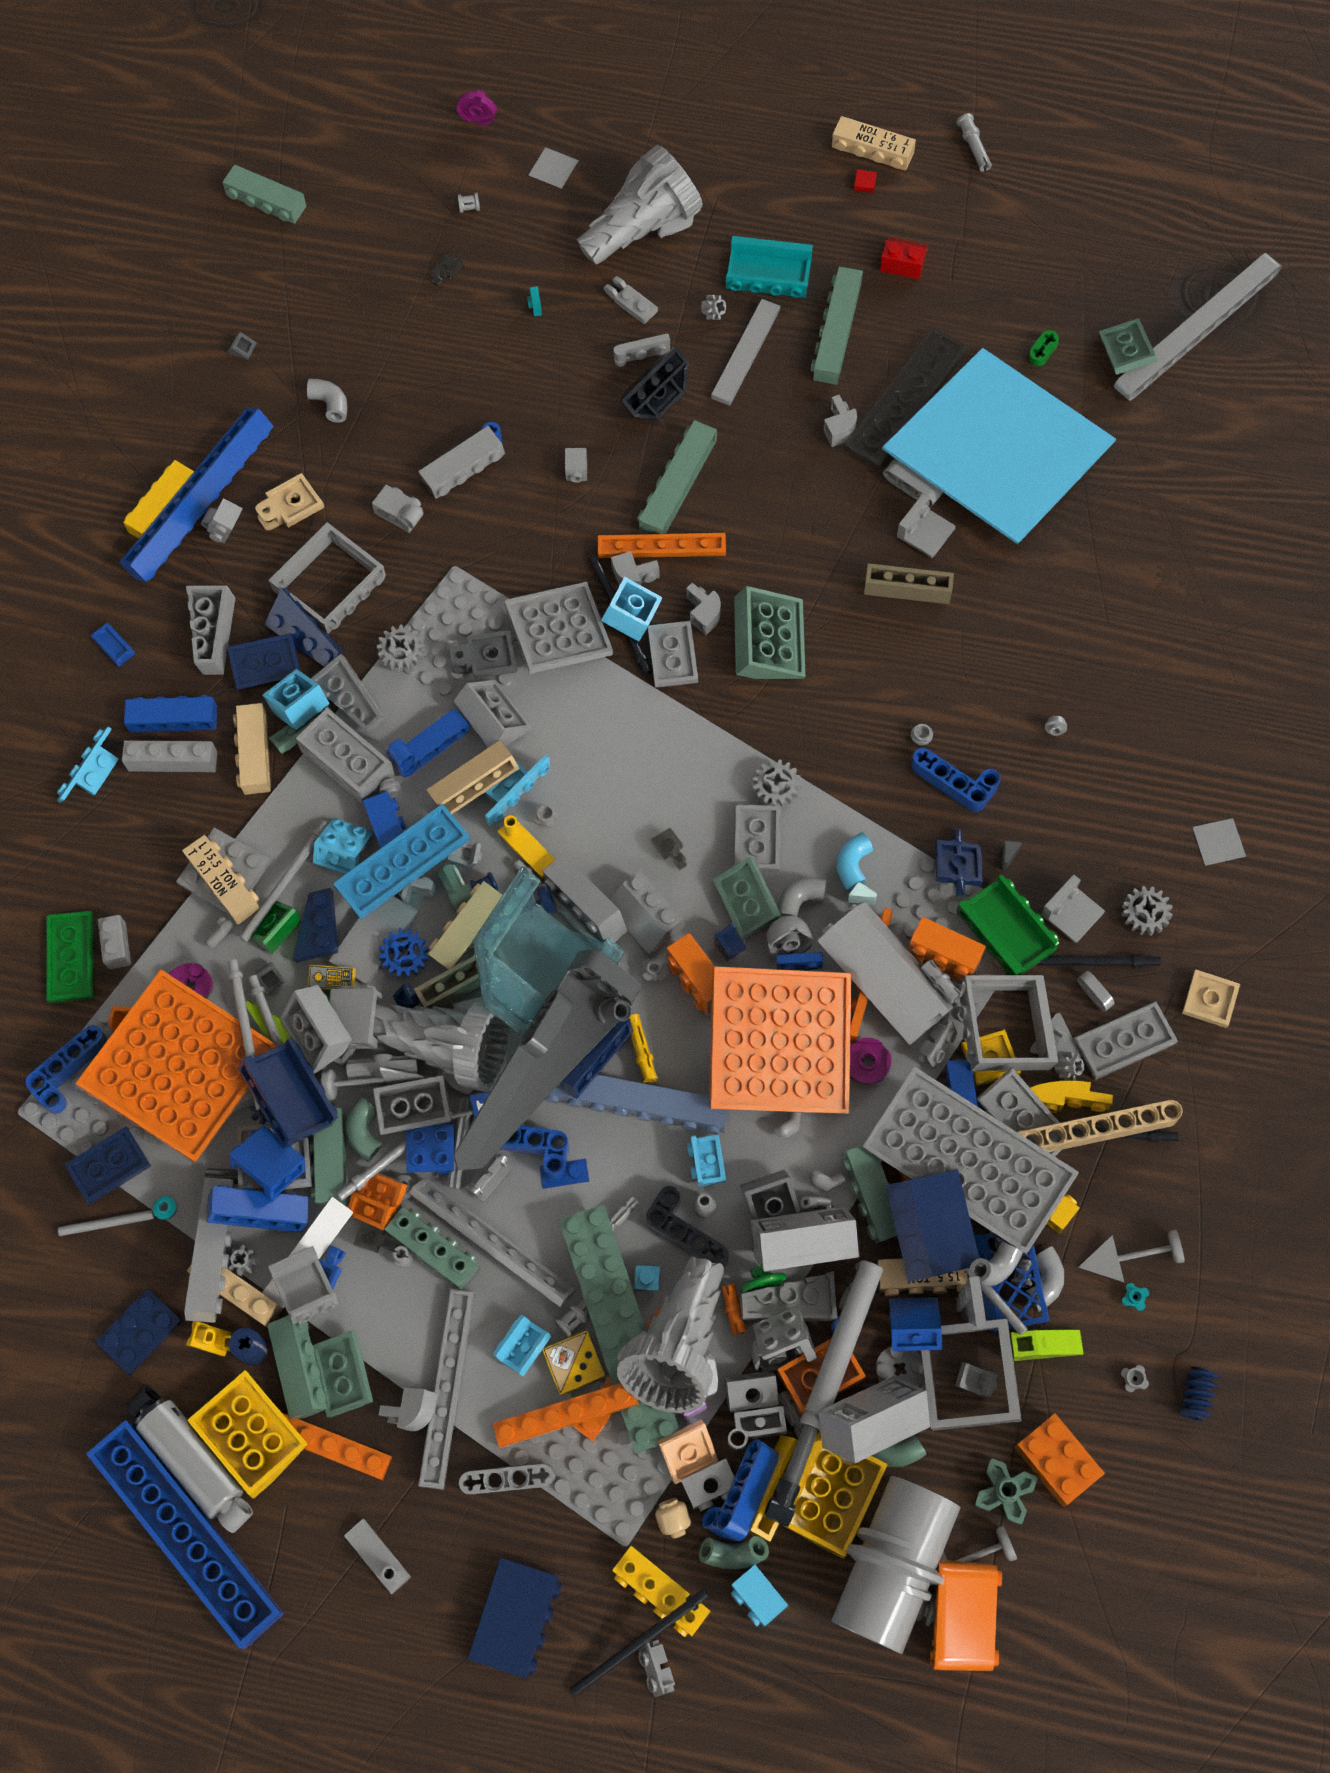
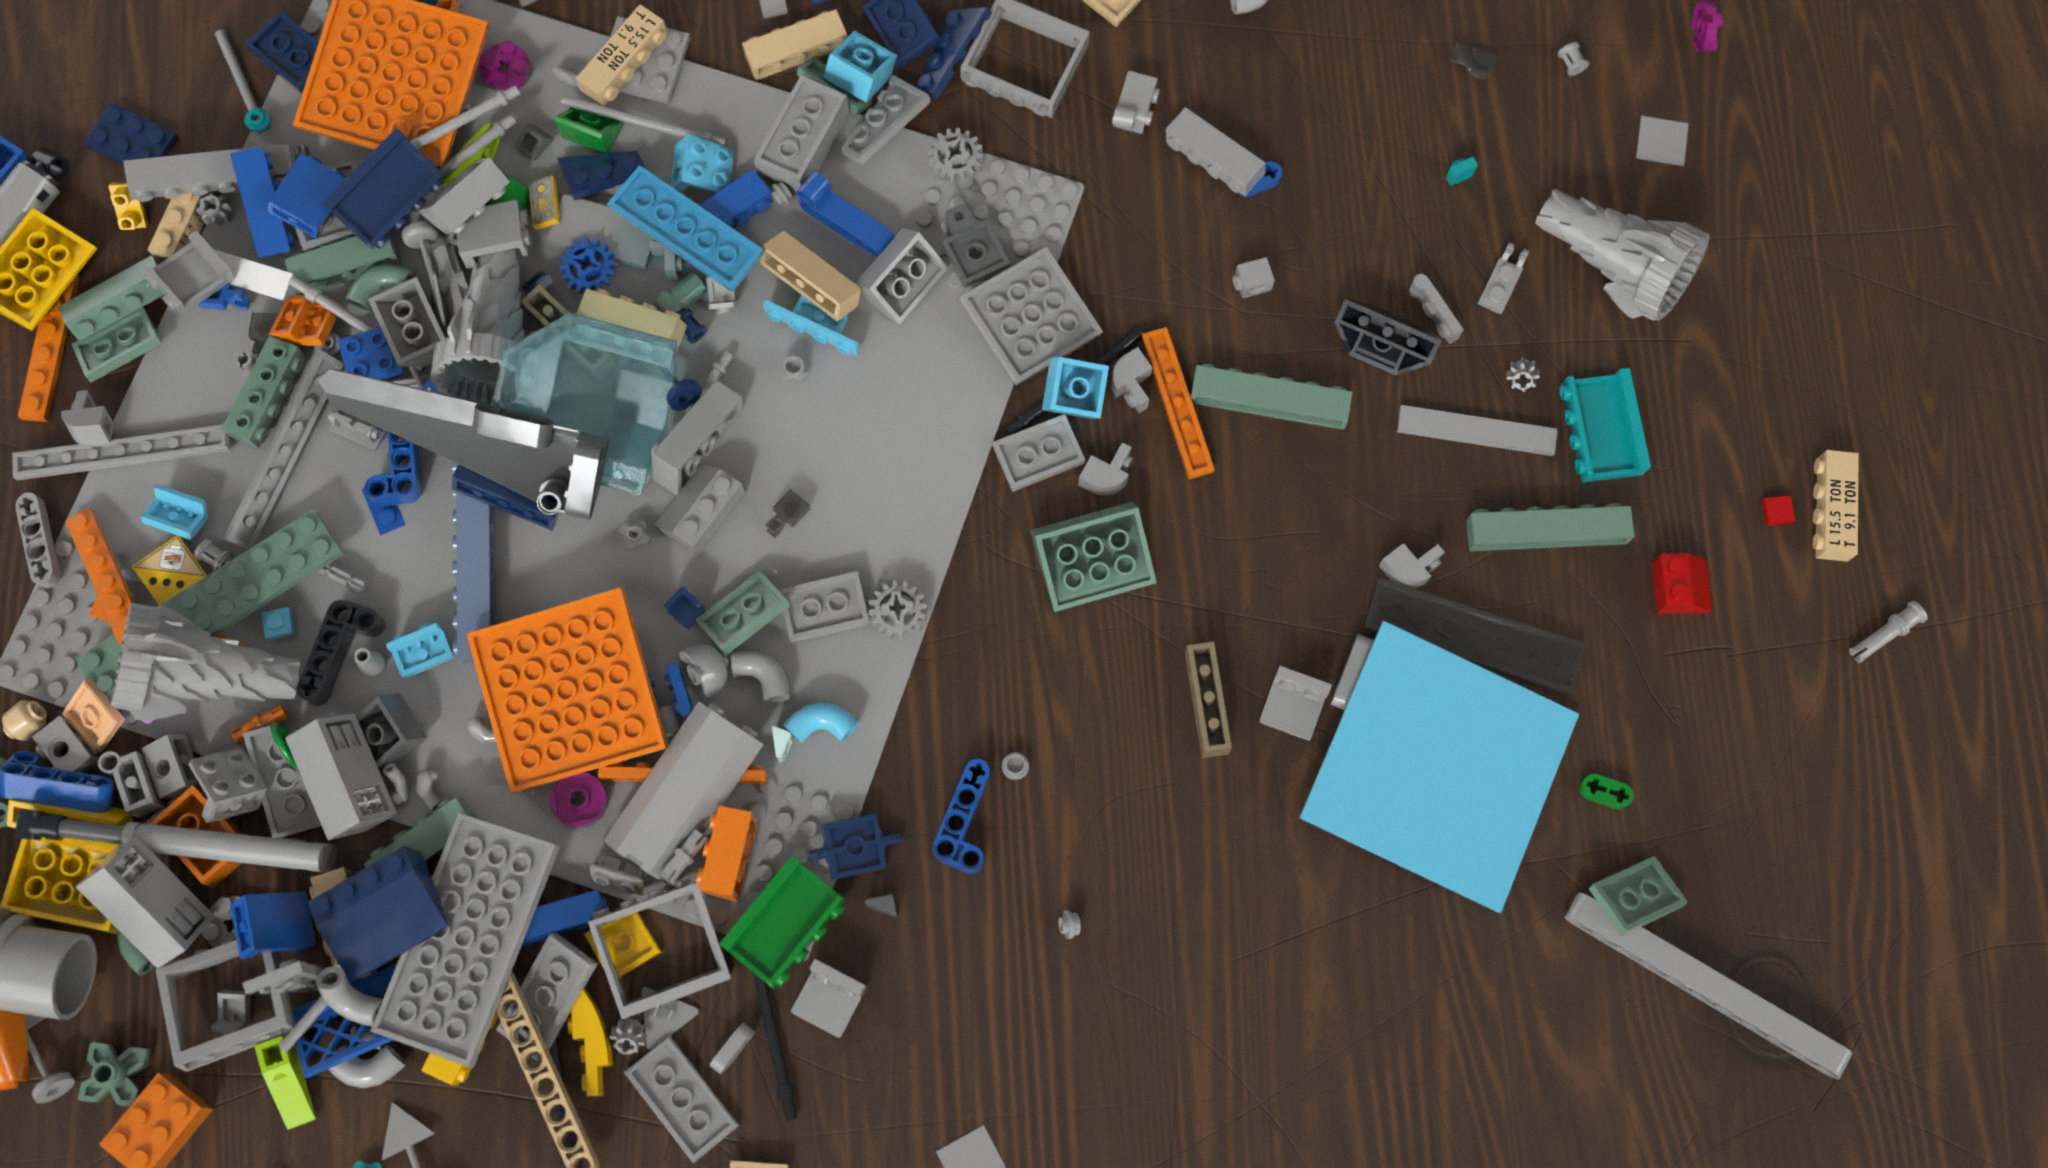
camera: 70 degrees right, 5 degrees up
(241, 1340) = (122, 242): dark blue piece -> none
(525, 845) = (751, 357): yellow piece -> none
(644, 1058) = (509, 562): yellow pin -> none
(694, 970) = (638, 571): orange brick -> none
(1141, 918) = (856, 1101): light grey gear -> none

